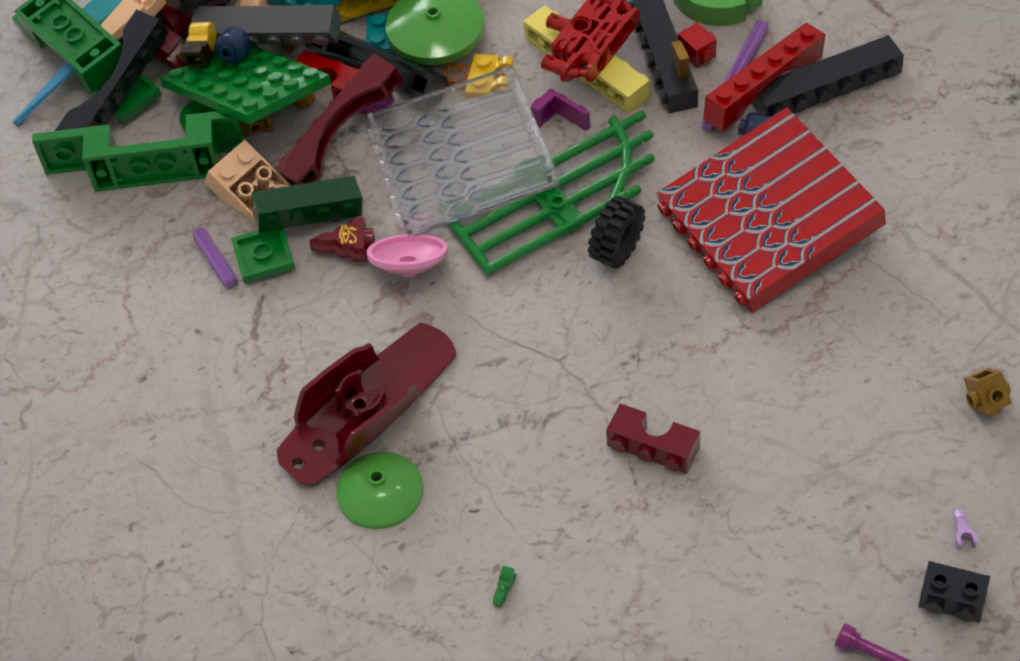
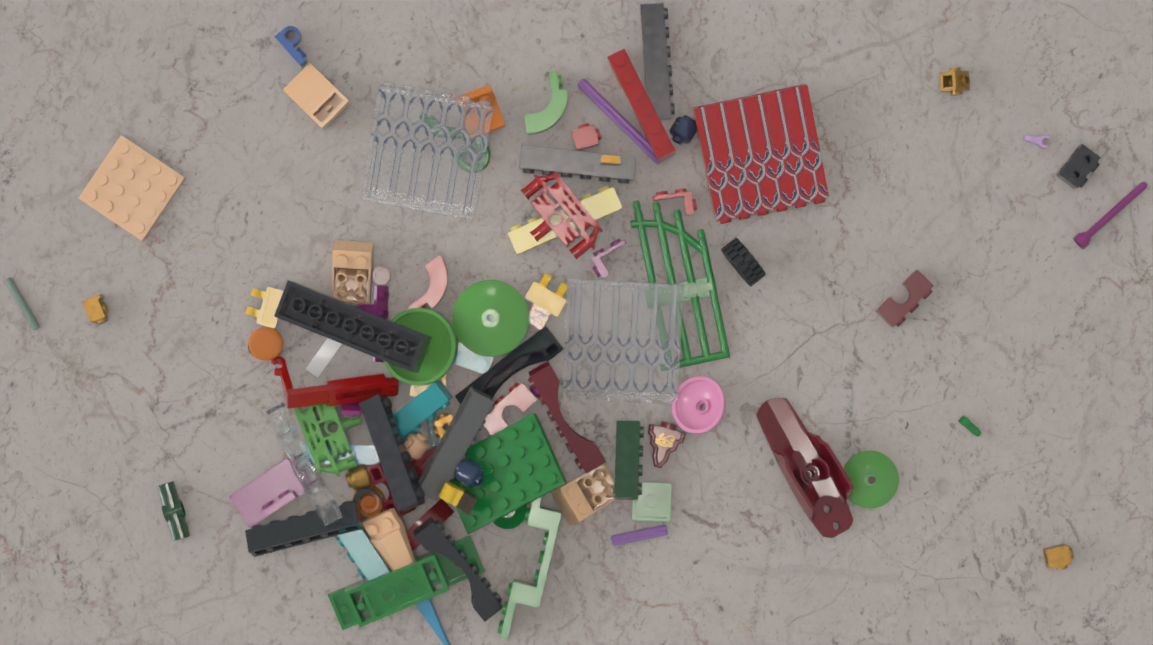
camera: 75 degrees left, 35 degrees up
(671, 162) = (689, 203): none -> bracket

